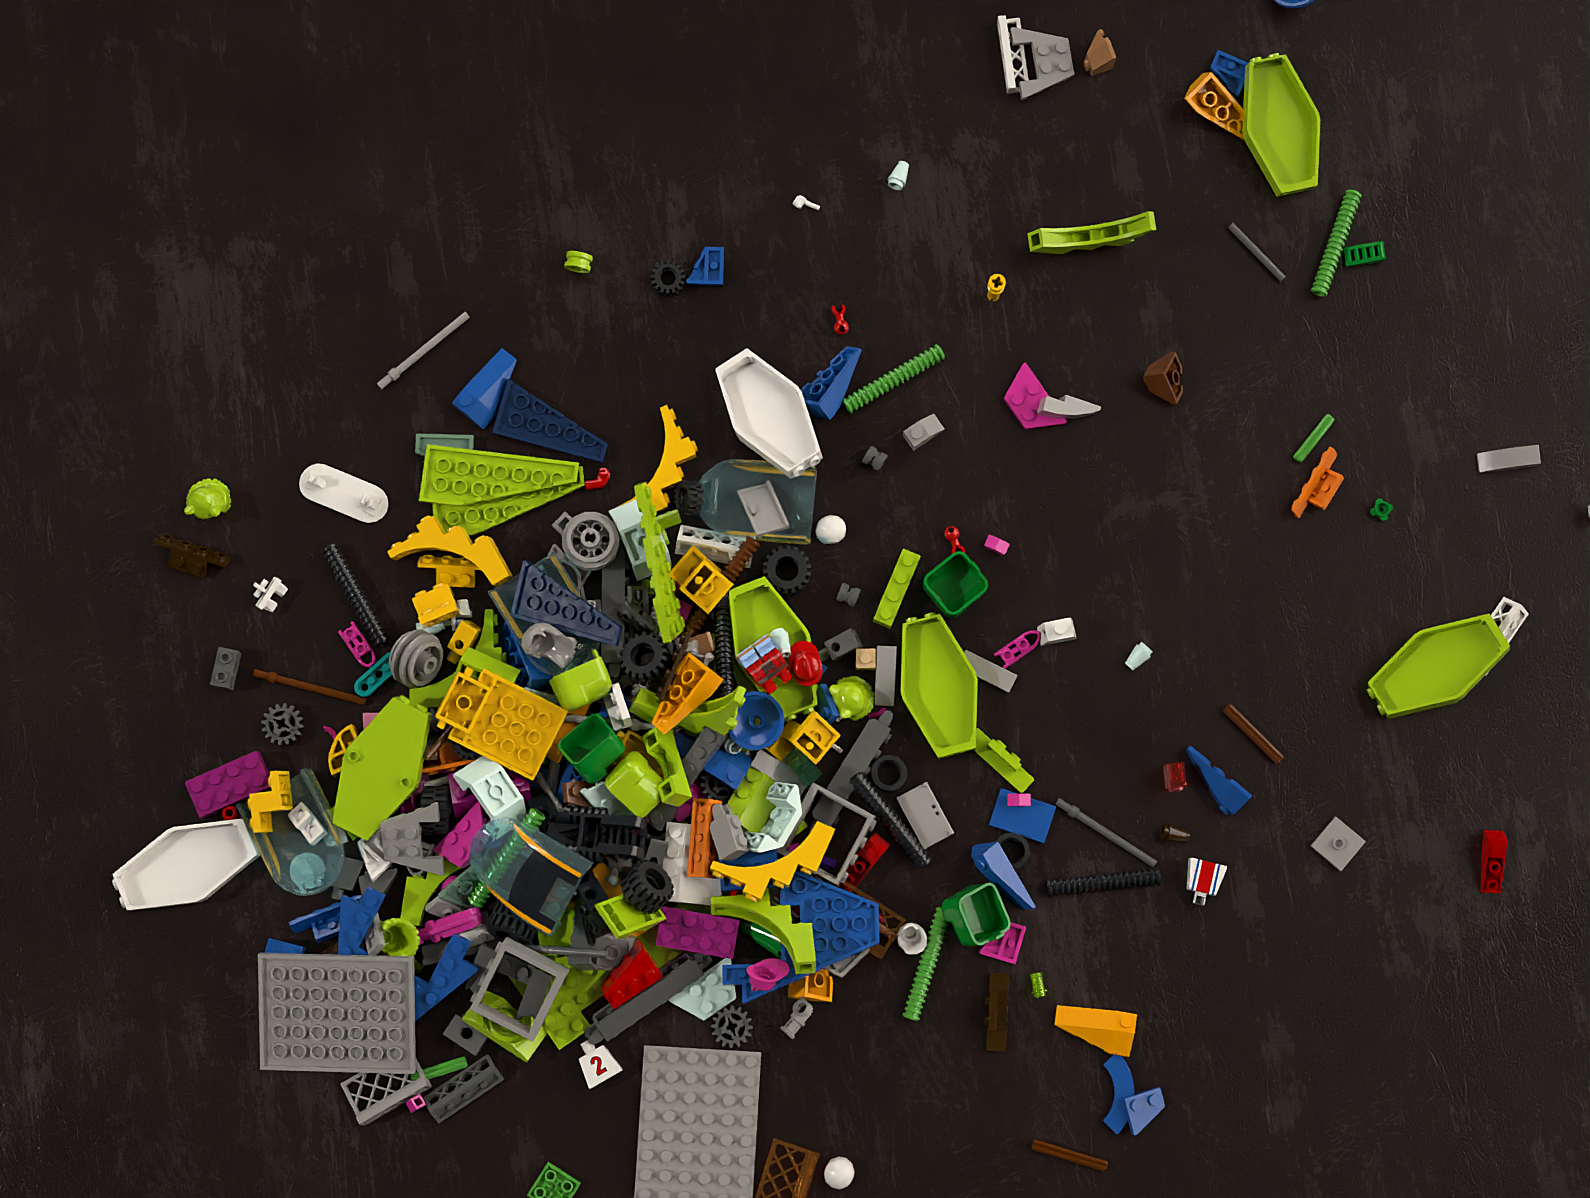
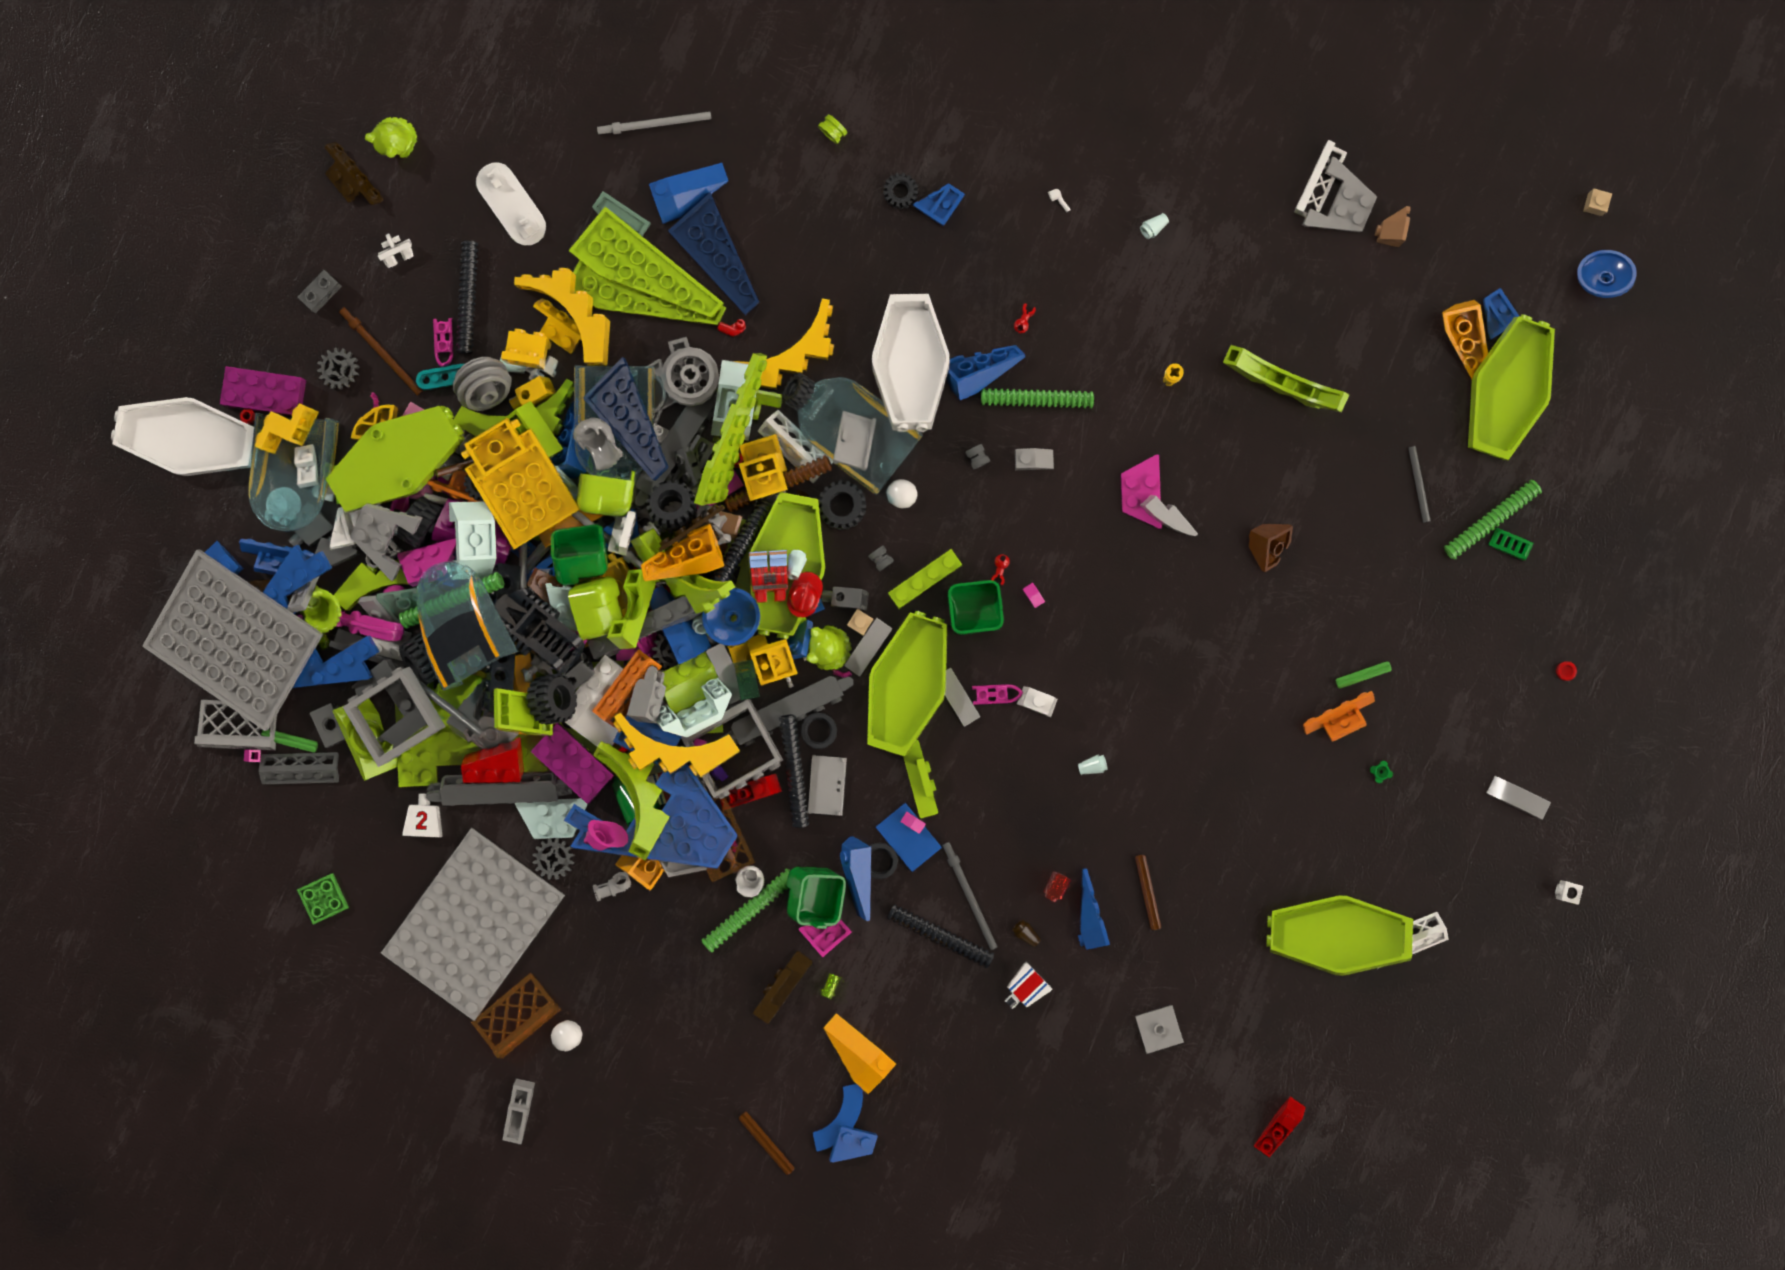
camera: 35 degrees right, 5 degrees up
(1478, 329) = (1566, 671): none -> red tile

